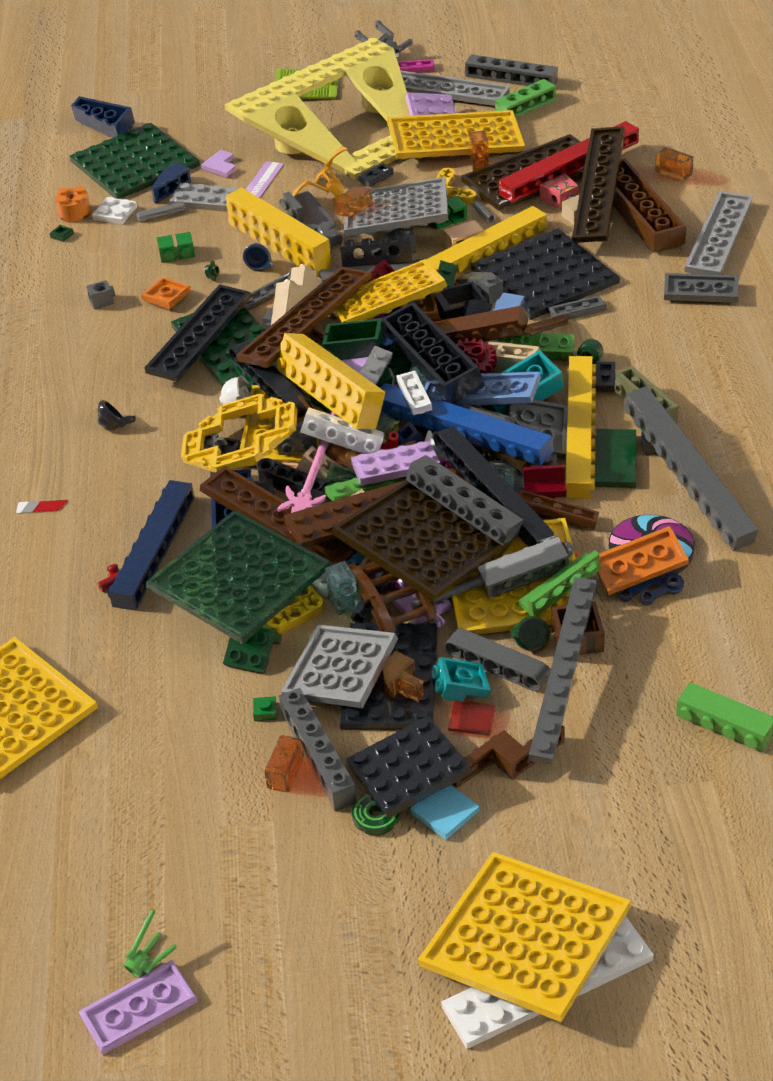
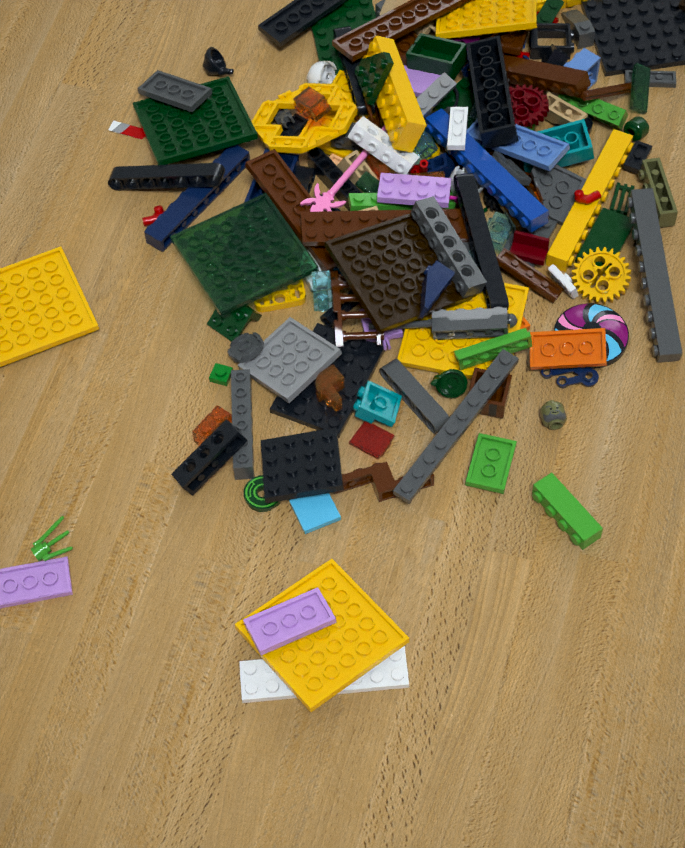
camera: 20 degrees right, 15 degrees up
(79, 451) = (174, 91): none -> dark grey plate
(109, 531) = (166, 176): none -> black beam
(115, 473) = (182, 134): none -> dark green plate
(245, 414) = (312, 104): none -> clear orange brick
(281, 671) = (245, 347): none -> dark grey tile
(298, 790) = (209, 457): none -> black brick
(300, 367) = (372, 75): none -> dark green plate
(468, 538) = (433, 285): none -> dark blue slope
(483, 930) = (289, 621): none -> lavender plate
(574, 317) = (640, 88): none -> clear green tile
(581, 421) = (586, 199): none -> red arm
(605, 508) = (563, 280): none -> white plate
(607, 407) = (624, 189): none -> dark green tile
(612, 481) = (588, 267): none -> yellow gear
(617, 698) = (491, 463): none -> bright green plate
(656, 630) = (553, 415): none -> olive head

